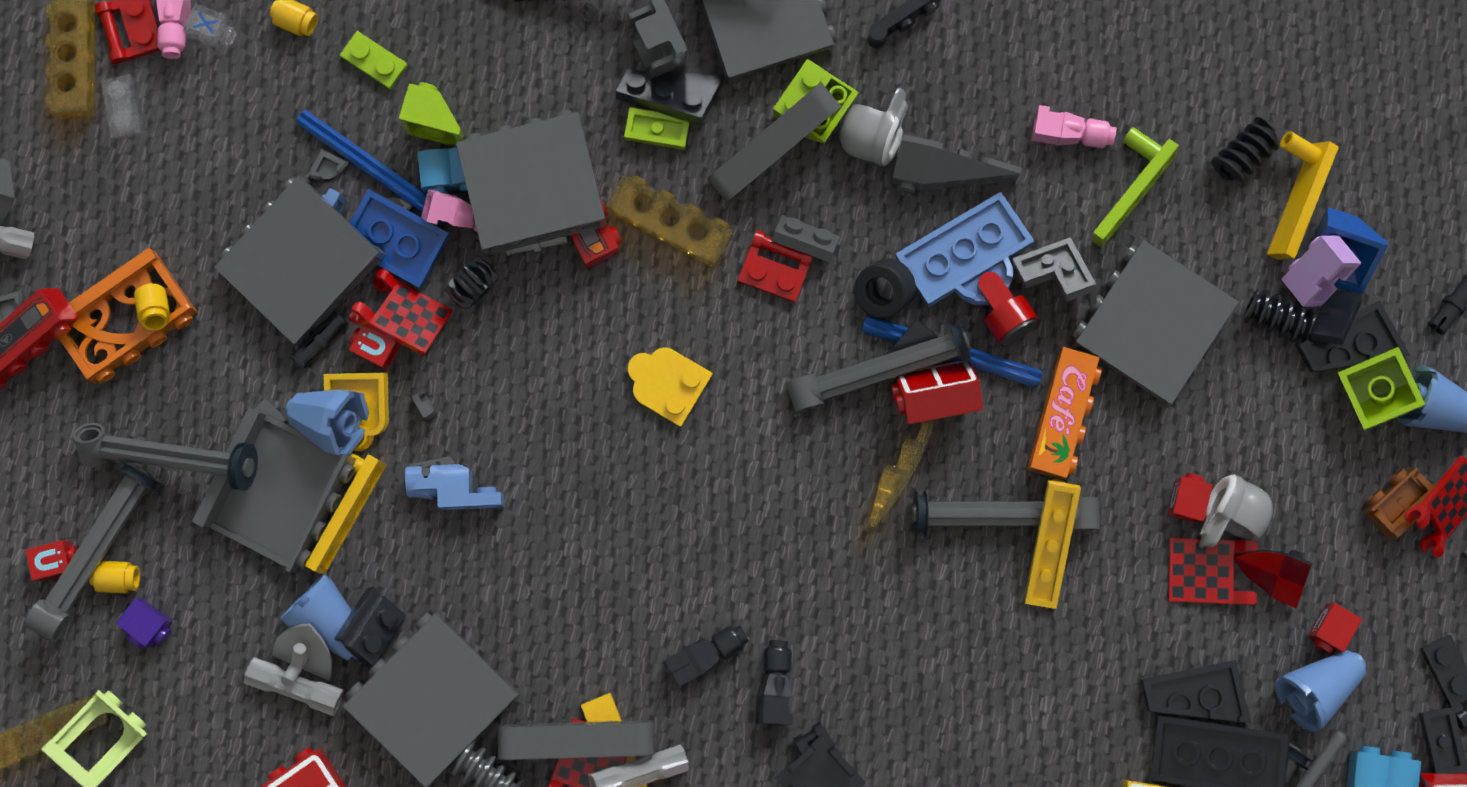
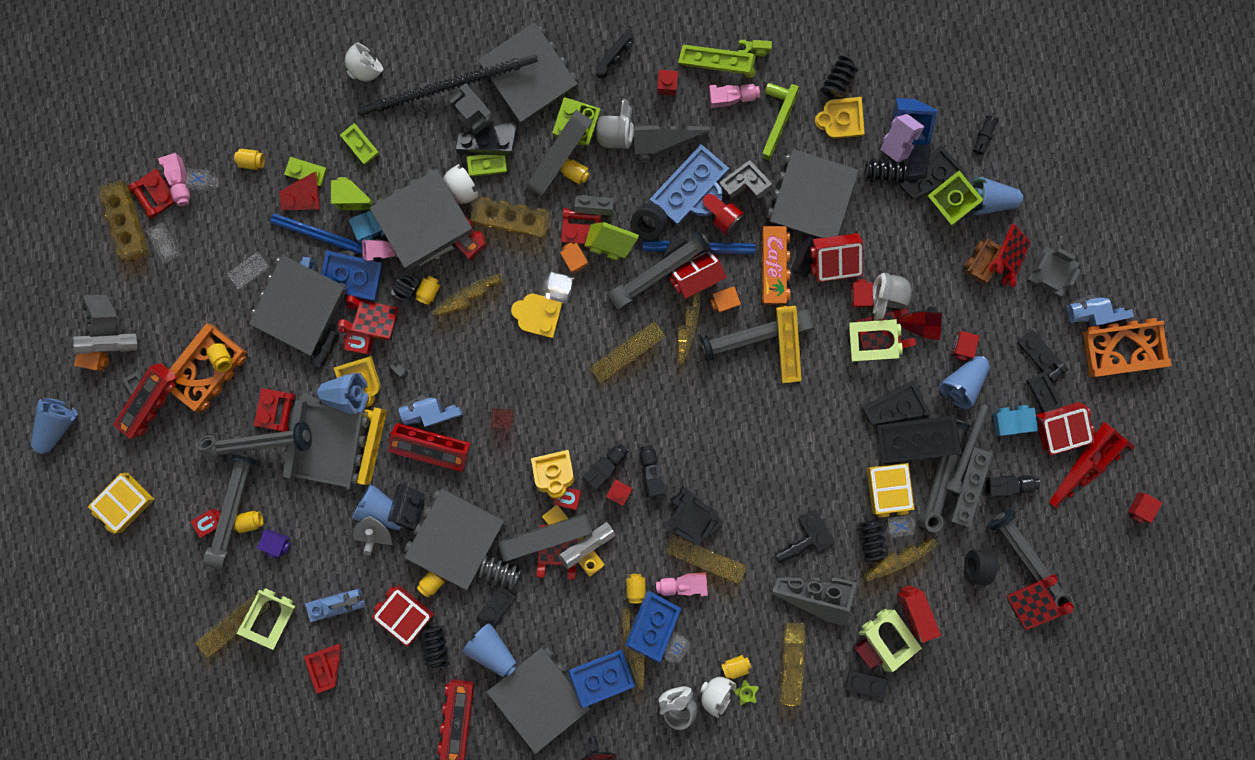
camera: 15 degrees left, 5 degrees up
(202, 409) = (268, 409): none -> red plate
(209, 750) = (334, 605): none -> medium blue plate
(239, 186) = (248, 270): none -> clear plate
(315, 694) = (388, 555): light grey axle -> none
(327, 166) = (297, 244): dark grey tile -> none
(356, 93) = (301, 194): none -> red wing
(371, 761) = (430, 584): none -> yellow brick
(435, 542) = (429, 447): none -> red brick
(470, 42) = (359, 144): none -> lime plate
(506, 295) = (427, 290): none -> yellow brick
(556, 324) = (462, 298): none -> clear yellow slope
(563, 530) = (502, 418): none -> clear red panel
(607, 147) = (460, 185): none -> white cylinder
(619, 641) = (553, 473): none -> yellow plate
(628, 685) = (569, 499): none -> red brick
(712, 350) = (558, 287): none -> clear brick
(714, 702) = (619, 492): none -> red brick
(750, 310) = (573, 257): none -> orange brick
(791, 178) = (575, 171): none -> yellow brick
(792, 482) = (627, 352): none -> clear yellow slope
(815, 300) = (610, 240): none -> lime slope
(970, 445) = (725, 300): none -> orange brick
(974, 82) = (667, 82): none -> red brick
(1064, 70) = (718, 60): none -> lime piece
(1119, 414) = (803, 260): none -> black plate
(1132, 68) = (758, 47): none -> lime plate
(1167, 429) = (837, 257): none -> red brick
(1206, 605) = (888, 325): none -> yellowish green panel
(1233, 214) = (842, 118): none -> yellow plate
(1304, 196) = (880, 94): yellow piece -> none

